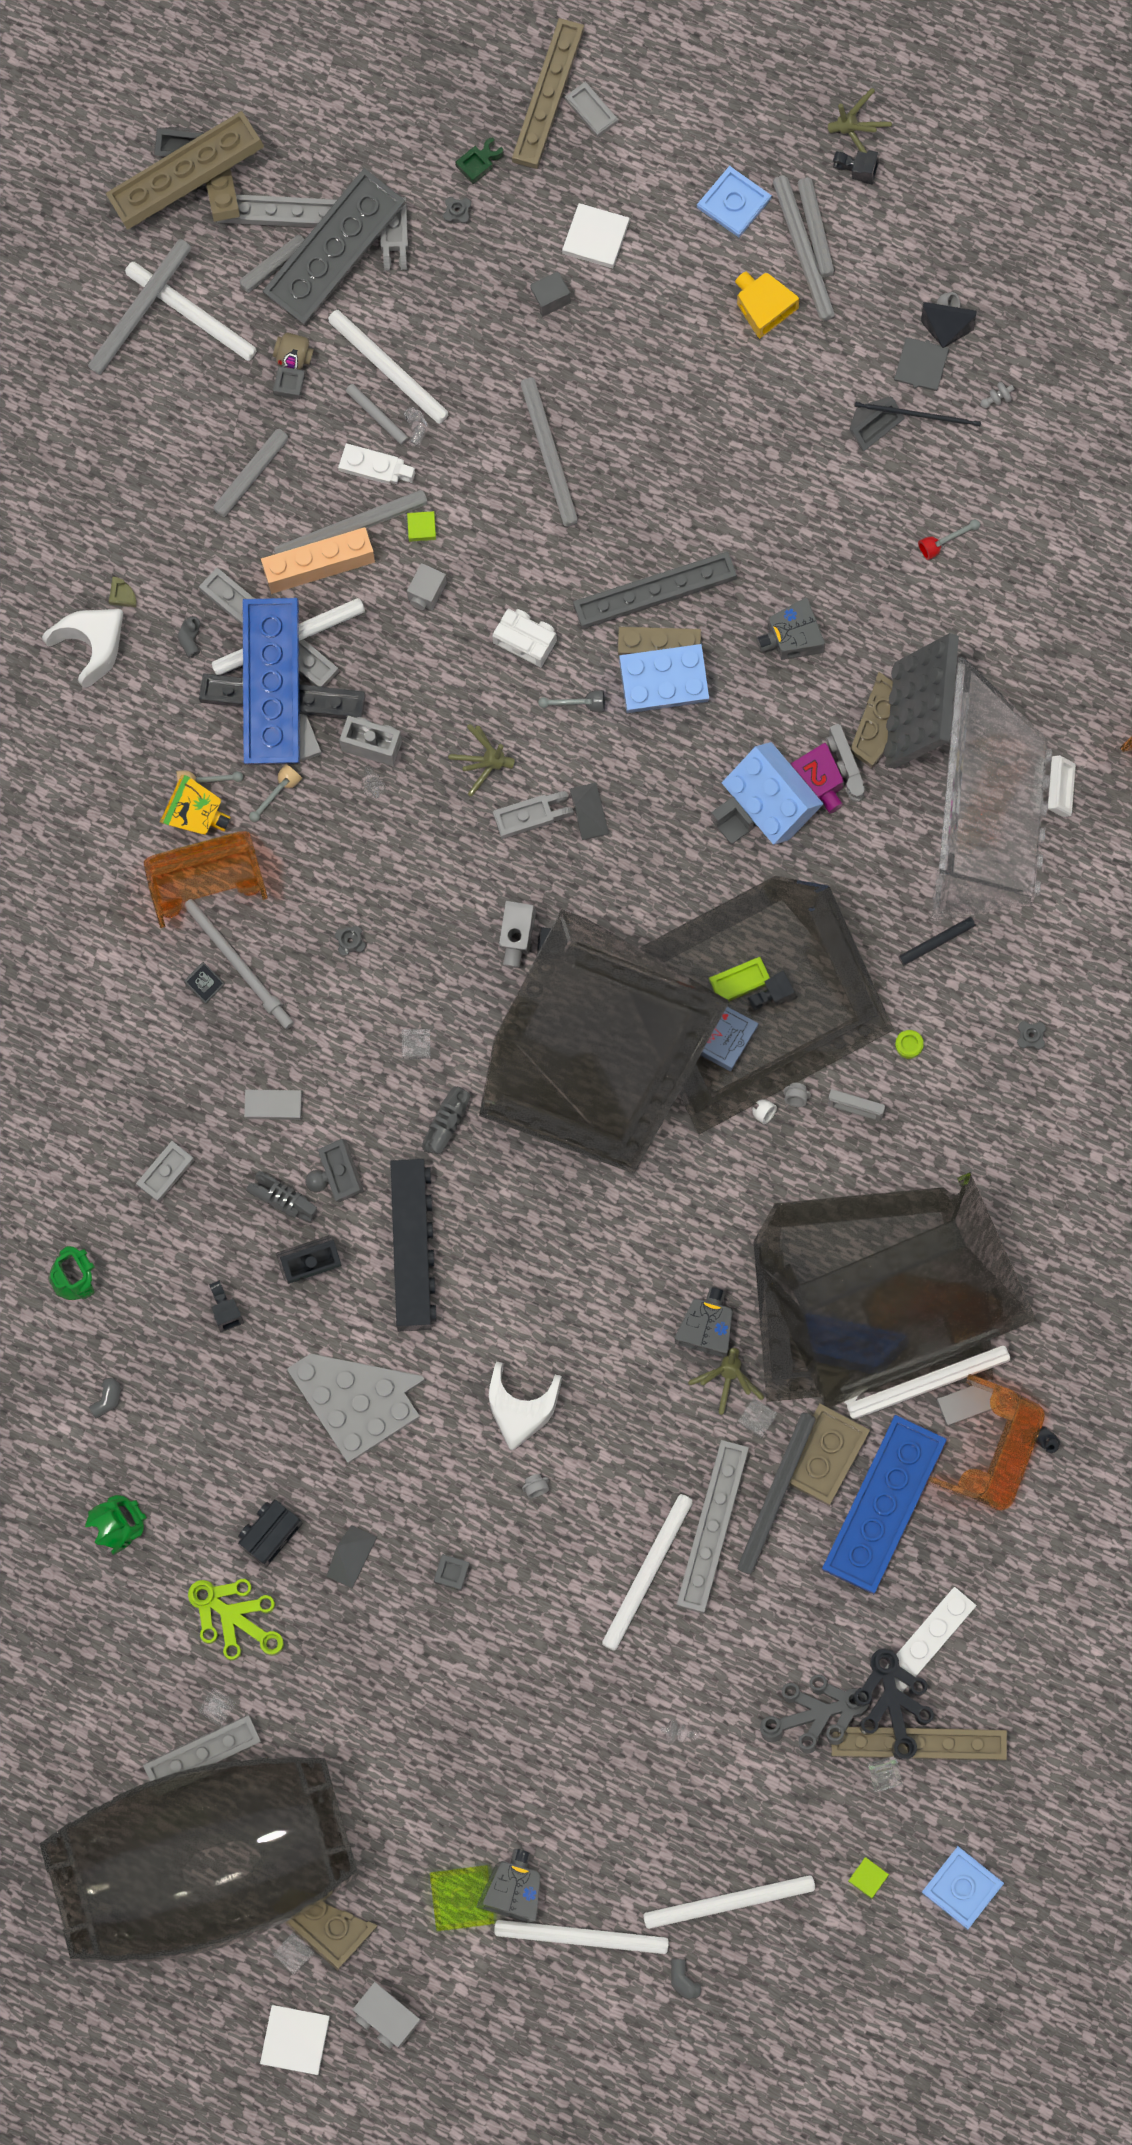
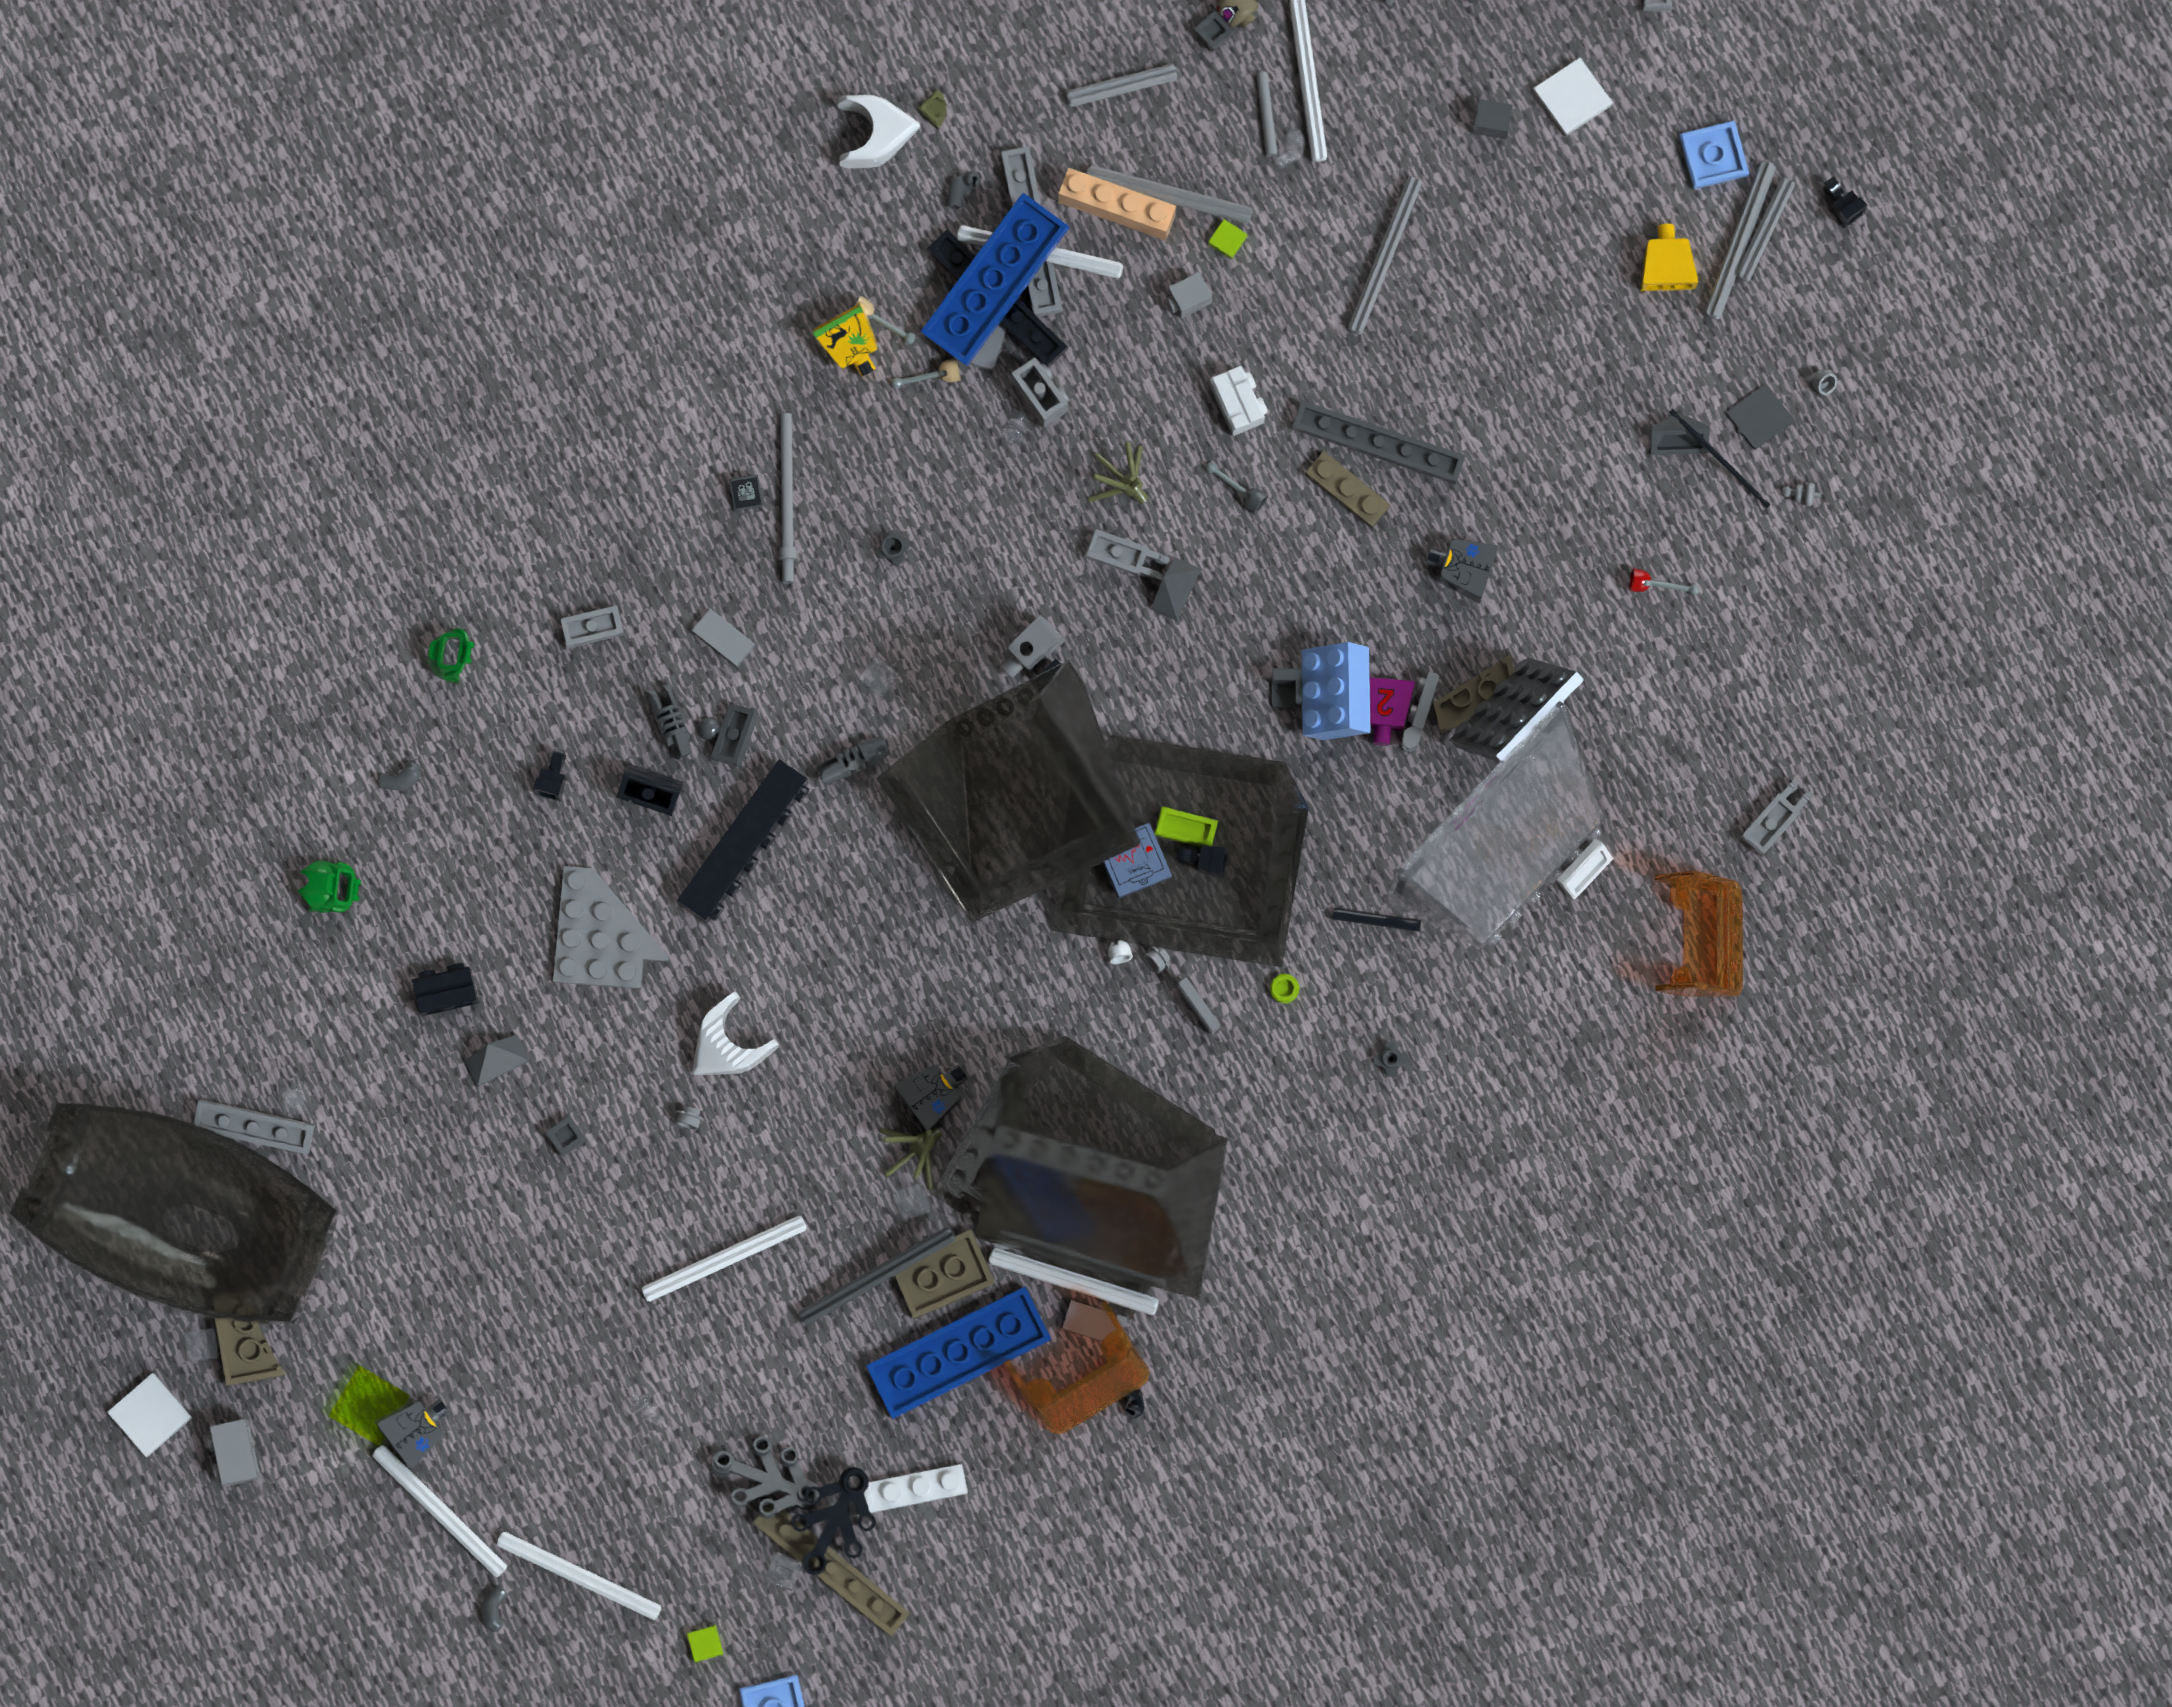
camera: 30 degrees right, 5 degrees up
(203, 871) = (816, 396): clear orange windscreen -> none
(232, 1616) = (363, 1034): lime plant -> none
(374, 465) = (1229, 157): white hinge -> none
(663, 678) = (1324, 524): light blue brick -> none
(712, 1527) = (805, 1262): light grey plate -> none
(848, 122) = (1865, 162): olive plant -> none
(947, 322) = (1809, 398): black slope -> none

